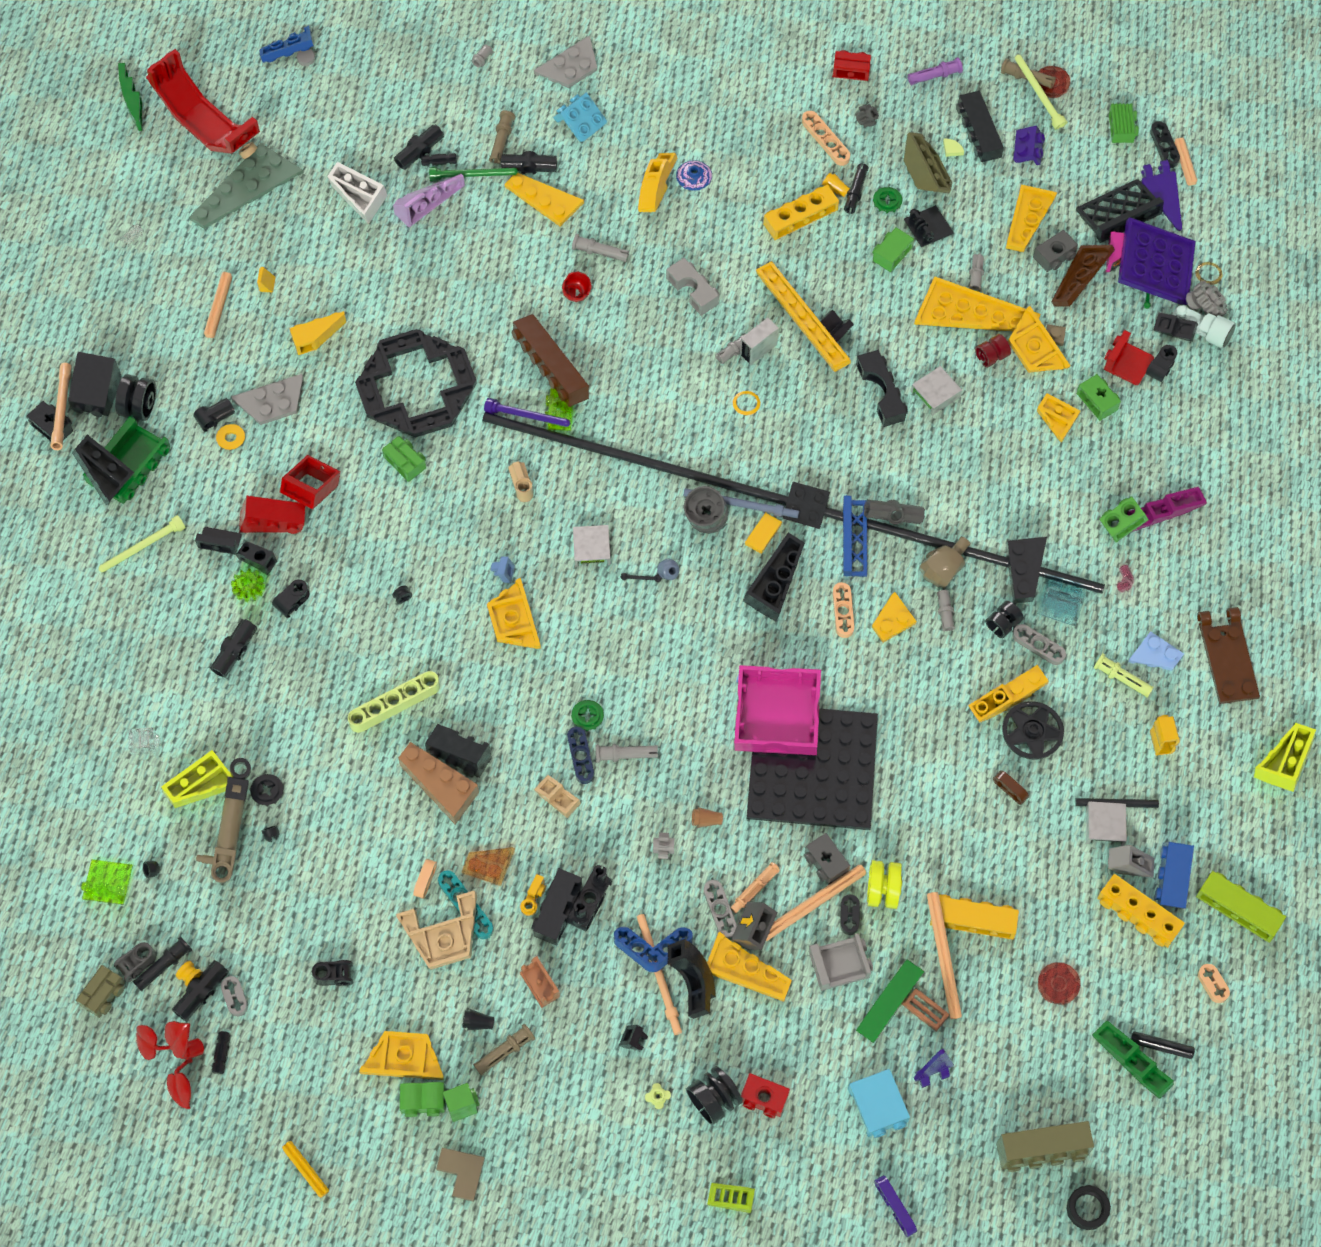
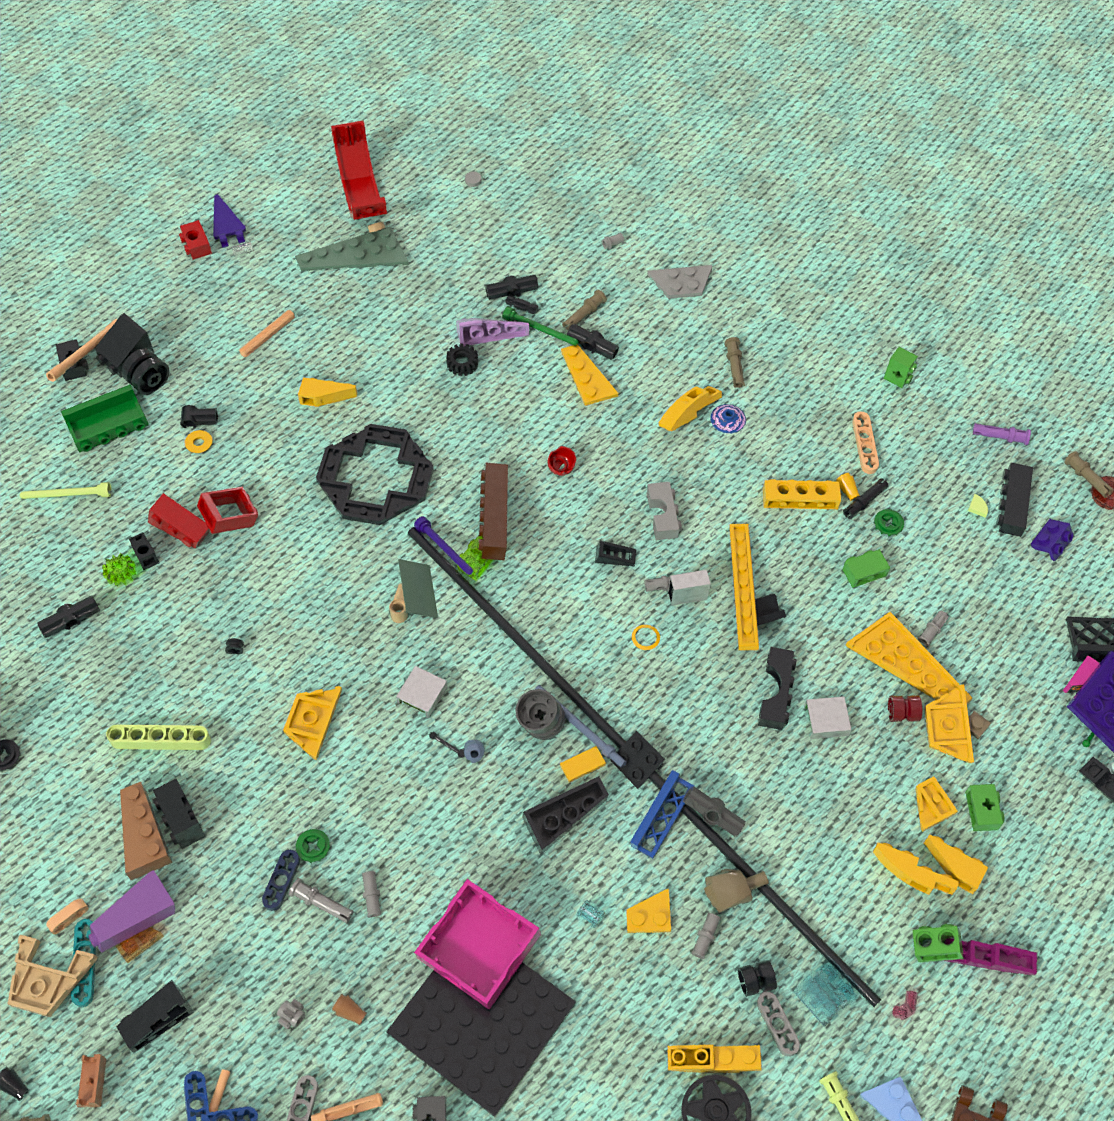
camera: 30 degrees right, 5 degrees down
(88, 252) = (195, 239): none -> red brick
(95, 217) = (226, 223): none -> dark purple flag
(101, 468) = (73, 413): black wedge -> none
(131, 97) = (317, 147): green slope -> none
(218, 540) = (126, 520): black panel -> none
(265, 280) = (316, 332): yellow slope -> none
(272, 400) = (252, 429): light grey wing -> none
(286, 48) = (469, 164): blue wing -> none
(291, 600) = (144, 600): black piece -> none
(358, 190) = (437, 297): white wedge -> none
(404, 458) = (319, 531): bright green brick -> none
(421, 248) = (462, 351): none -> black tyre
(482, 842) = (132, 913): none -> medium lavender slope
(503, 569) = (333, 671): medium blue tile -> none
(527, 462) = (417, 588): none -> sand green piece
(536, 889) = (146, 988): yellow plate -> none
(557, 796) = (234, 907): tan slope -> none
(581, 116) = (661, 325): medium azure bracket -> none
(591, 246) = (598, 434): light grey pin -> none
(595, 888) = (172, 1036): black piece -> none
(662, 724) = (371, 894): none -> light grey pin
(664, 114) = (734, 356): none -> dark tan pin
(664, 350) = (614, 560): none -> black slope
(818, 53) = (901, 367): none -> bright green brick
(846, 643) = (590, 914): none -> clear light blue bush
(848, 604) = (607, 895): light nougat beam -> none
(851, 65) = (927, 392): red brick -> none
(867, 115) = (914, 440): dark grey gear -> none
(925, 165) = (942, 508): olive wedge -> none
(928, 225) = (913, 563): black hinge -> none
(1024, 567) = (807, 937): black wedge -> none
(1029, 212) = (1015, 600): yellow wing -> none
(1057, 120) = (1094, 529): yellowish green piece -> none
(1060, 243) = (1030, 640): dark grey brick -> none
(1066, 476) = (904, 866): none -> yellow slope
(1081, 271) = (1036, 678): reddish brown wing -> none
(1105, 453) = (957, 864): none -> yellow slope
(1127, 360) = (1034, 786): red bracket -> none
(1162, 364) = (1067, 808): black piece -> none

